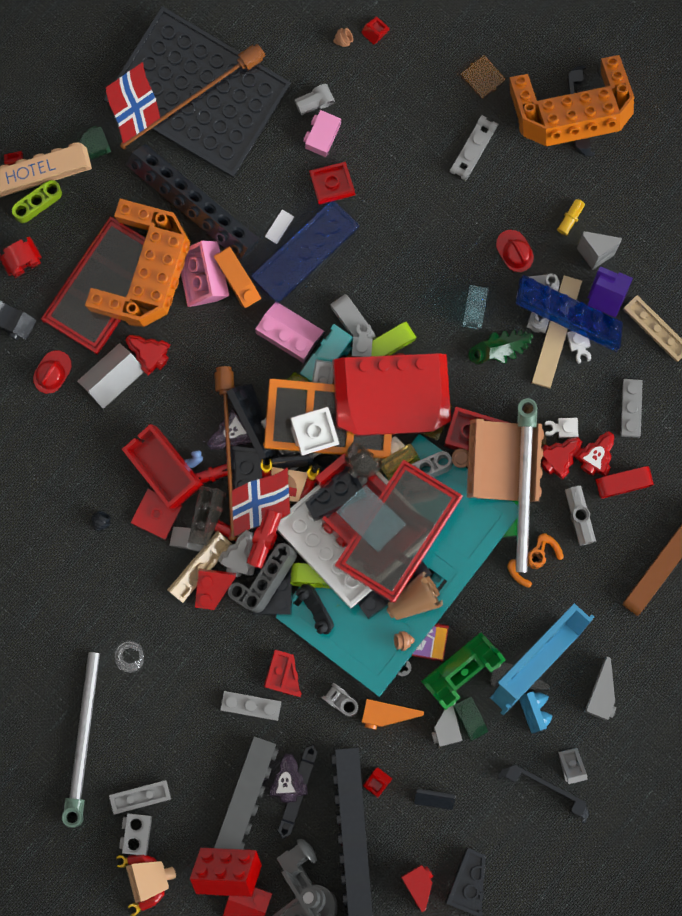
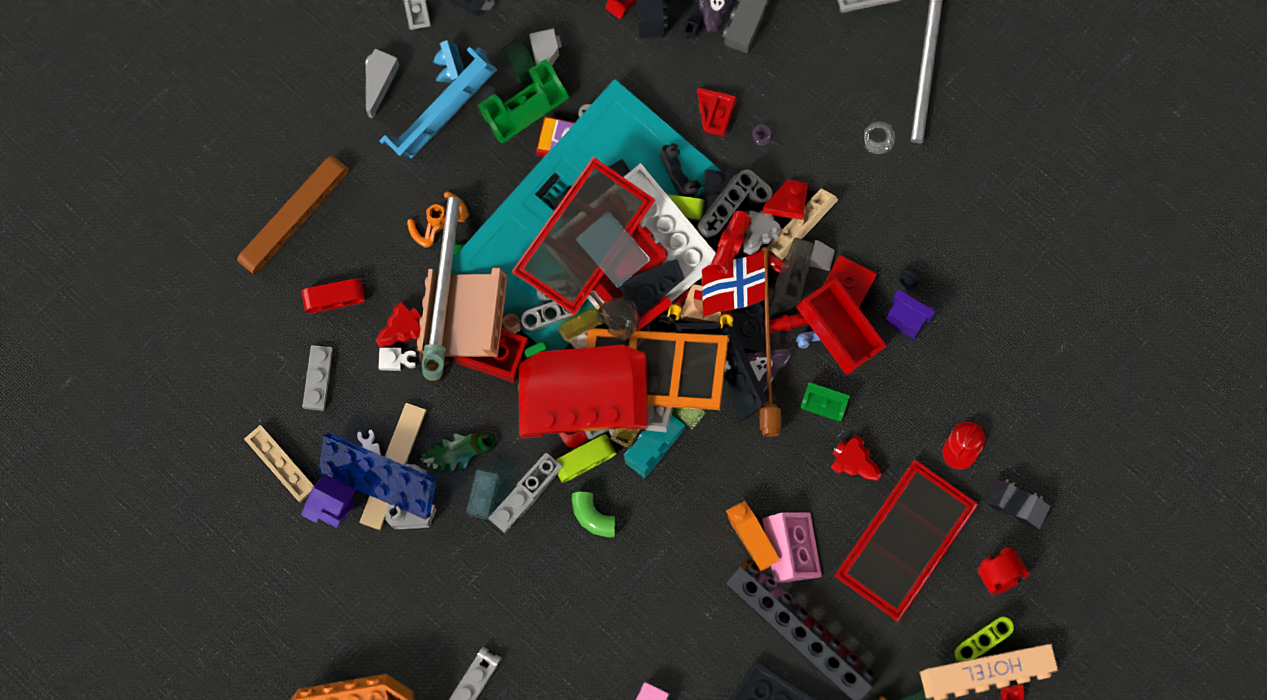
camera: 170 degrees left, 5 degrees down
(100, 484) = (908, 314): none -> dark purple plate
(111, 375) = (898, 436): light grey slope -> none
(156, 270) = (844, 547): orange wedge -> none
(176, 403) = (824, 402): none -> green hinge
(234, 657) = (767, 132): none -> clear purple bush
(251, 706) = (750, 82): light grey plate -> none
(279, 226) = (702, 602): white sticker -> none
(289, 332) = (694, 477): bright pink slope -> none
(305, 251) = (673, 569): clear blue plate -> none
(314, 431) = (672, 346): white panel -> none
(332, 183) = (639, 648): red plate -> none
(340, 700) = (657, 84): light grey piece -> none
(350, 316) = (622, 485): light grey beam -> none
(362, 345) = (613, 453): light grey plate -> none
(380, 292) = (590, 517): none -> bright green cylinder
(384, 714) = (605, 66): orange slope -> none
(403, 640) = (585, 131): nougat plate -> none
(415, 598) = (564, 171): medium nougat cone -> none
(436, 437) = (540, 347): none -> green tile
(438, 309) = (525, 493): none -> light grey slope
(515, 250) = (433, 563): red piece -> none
(571, 217) = (364, 597): yellow axle -> none
(582, 527) = (386, 273): light grey piece -> none
(596, 455) = (360, 326): red rock -> none
(597, 248) = (335, 547): light grey slope -> none

